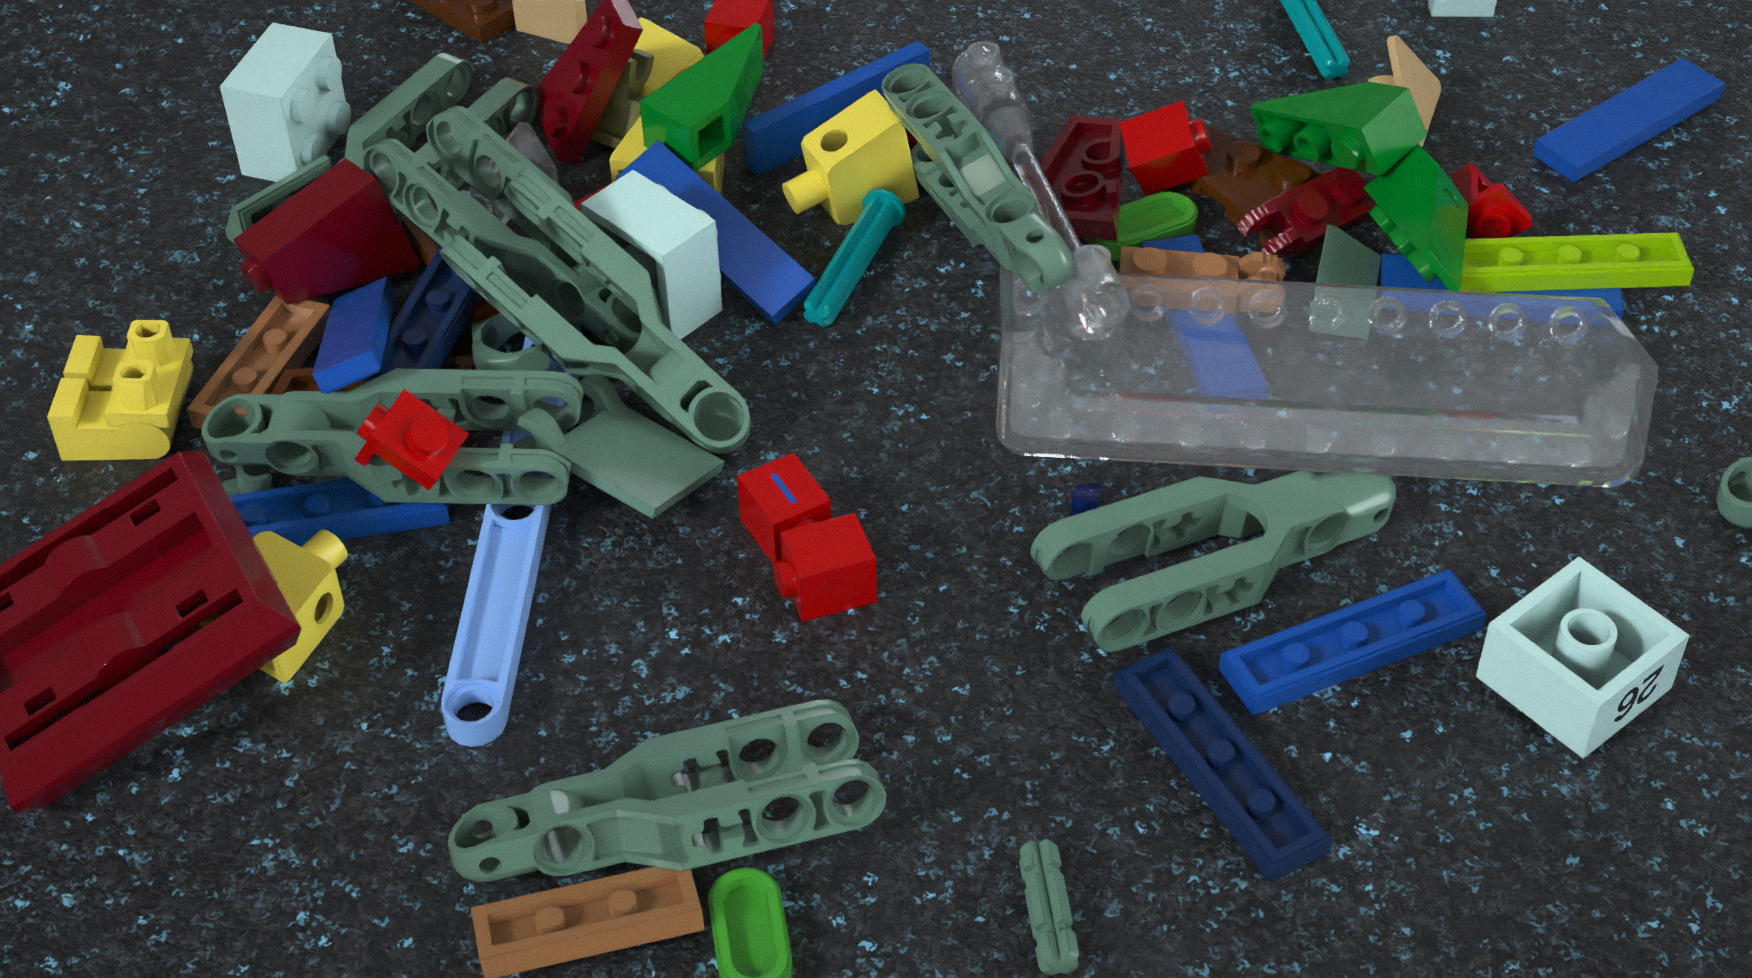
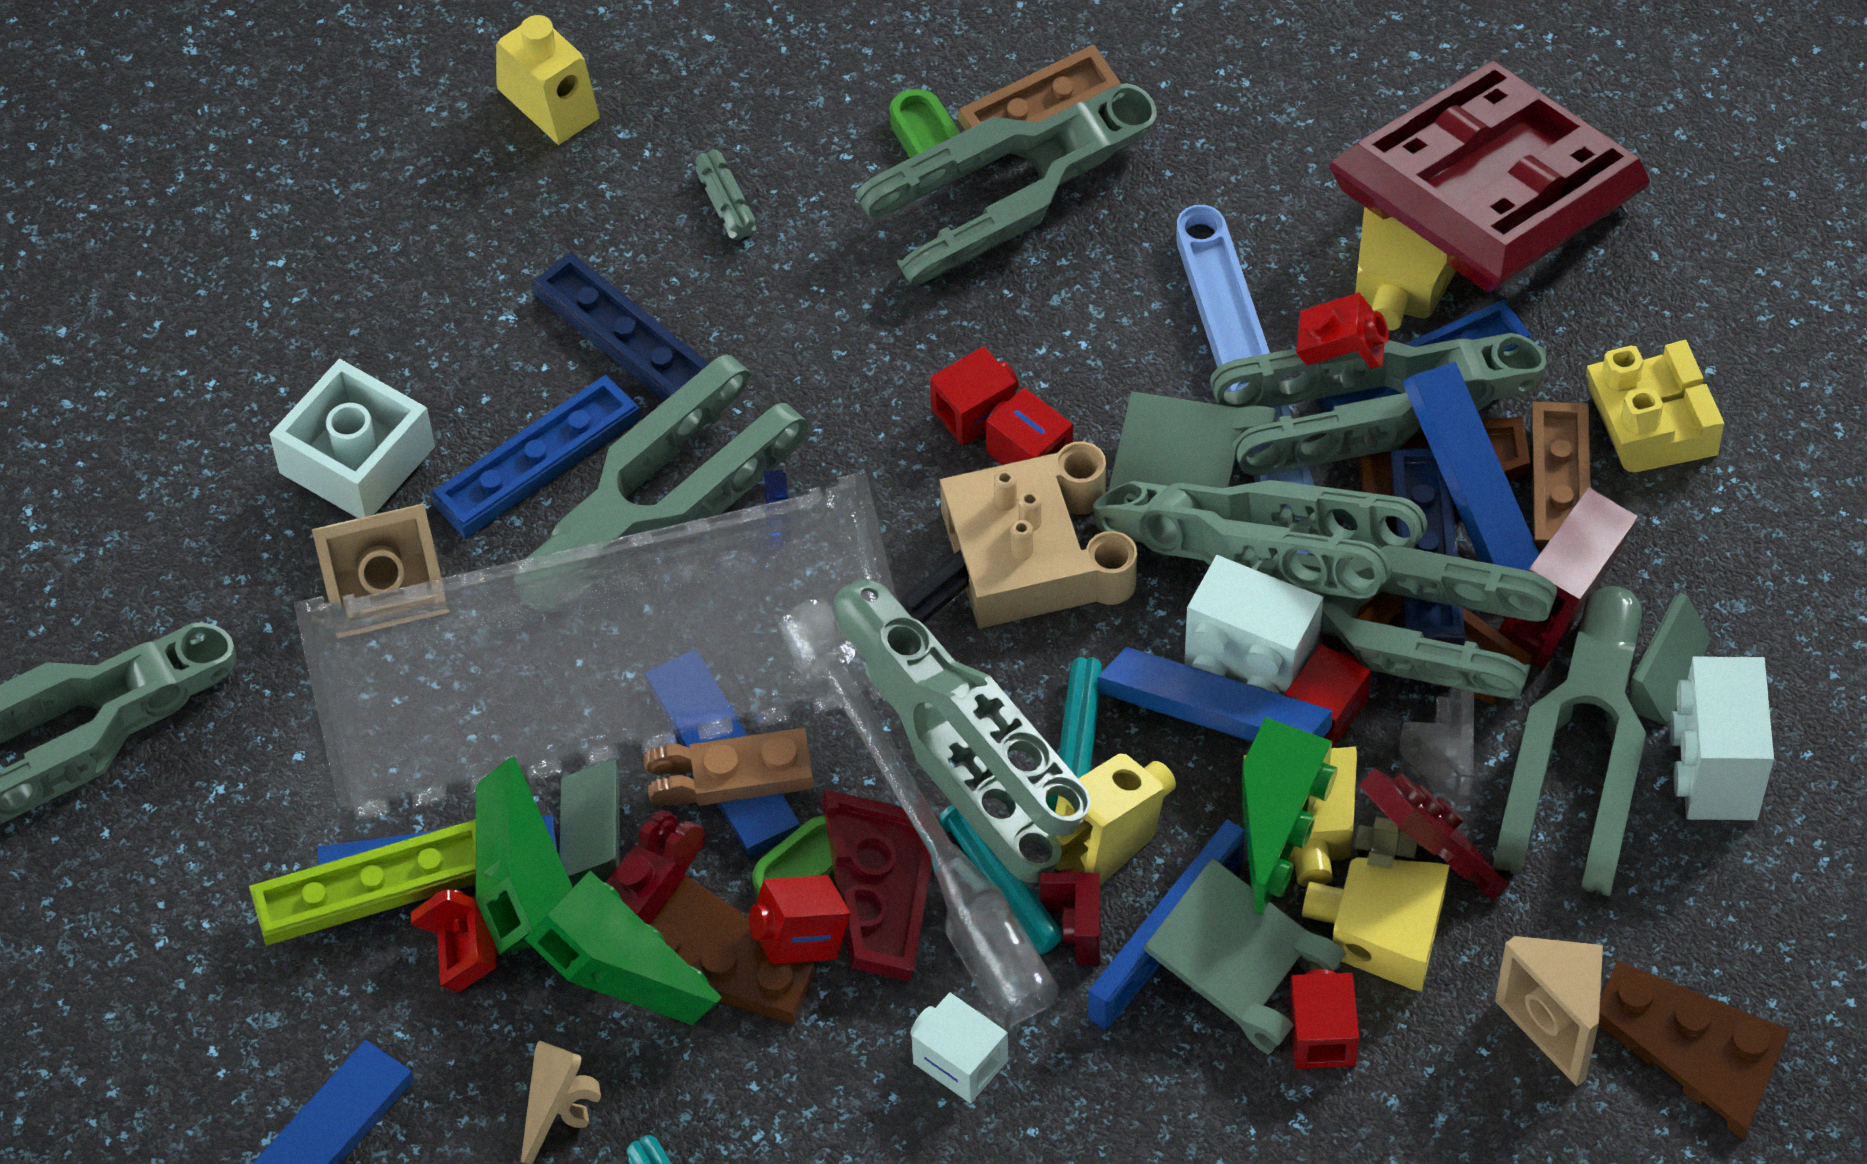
camera: 165 degrees right, 10 degrees up
(802, 62) = (1237, 954): none -> sand green flag
(839, 409) = (1019, 543): none -> tan piece
(1049, 64) = (959, 1046): none -> light aqua brick
(1542, 538) = (376, 553): none -> tan slope

